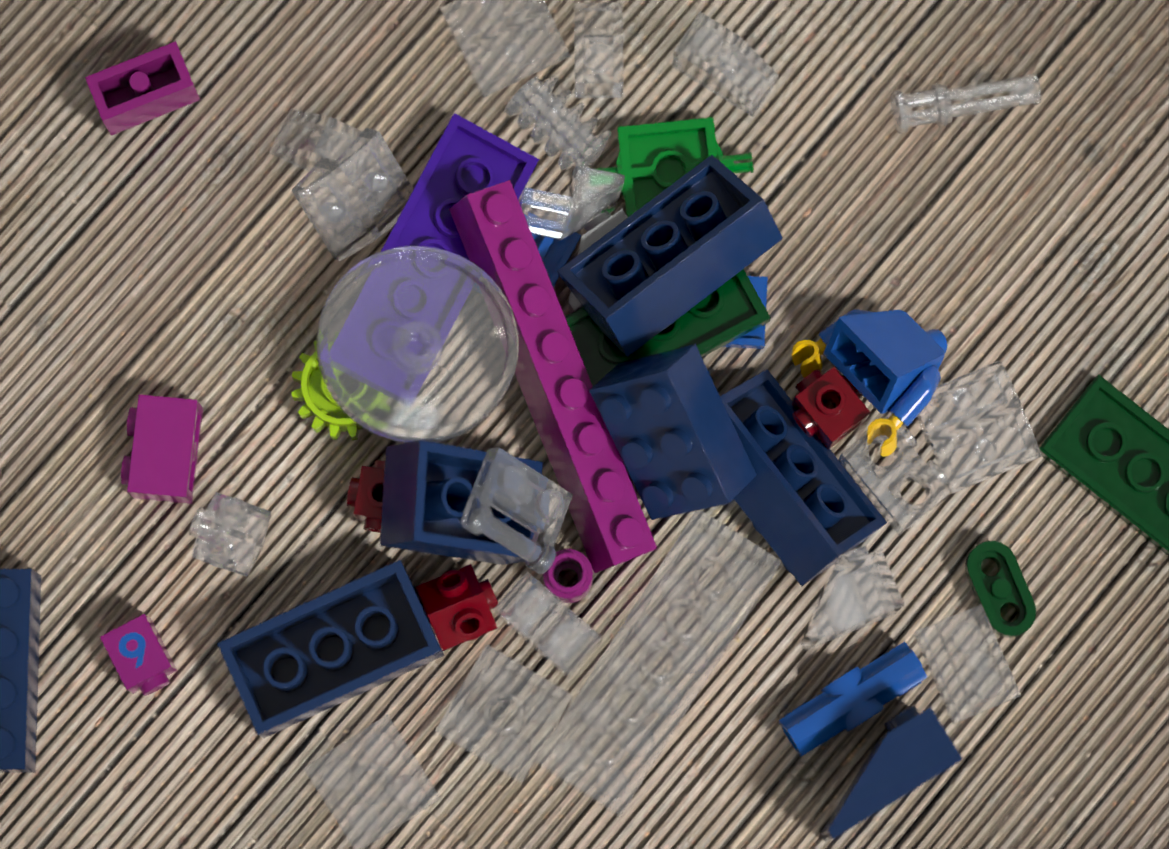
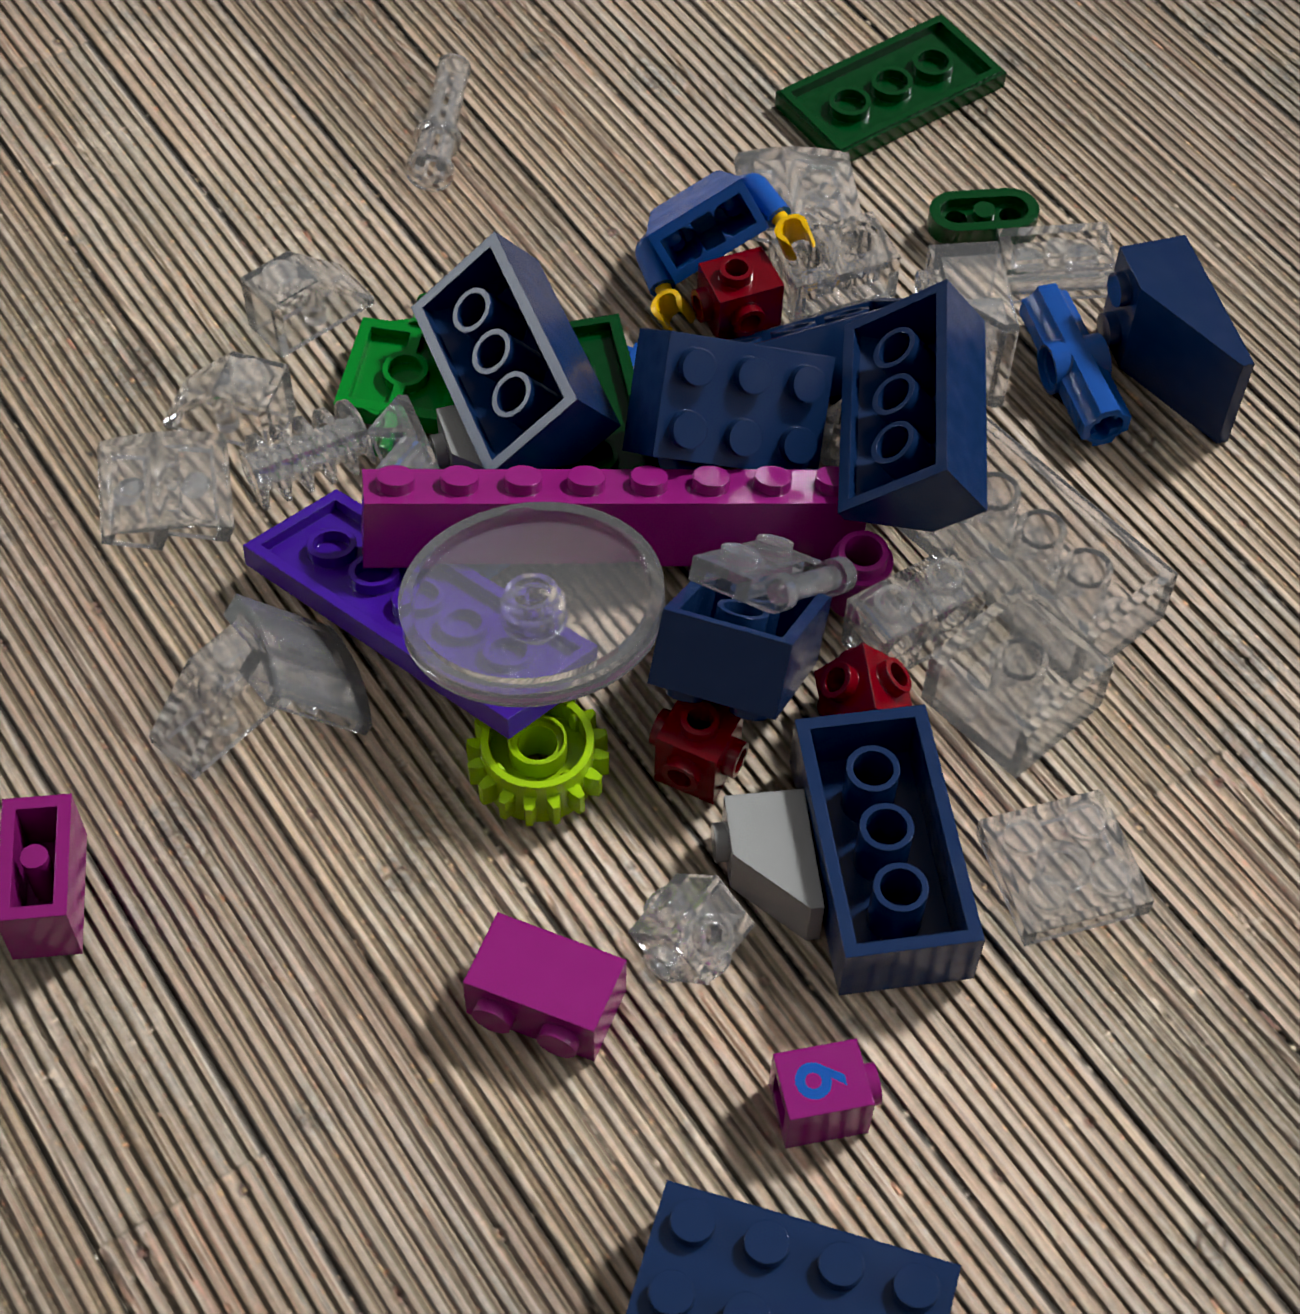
camera: 75 degrees left, 25 degrees down
(309, 571) = (772, 857): none -> light grey slope
(697, 578) = (914, 413): none -> dark blue slope

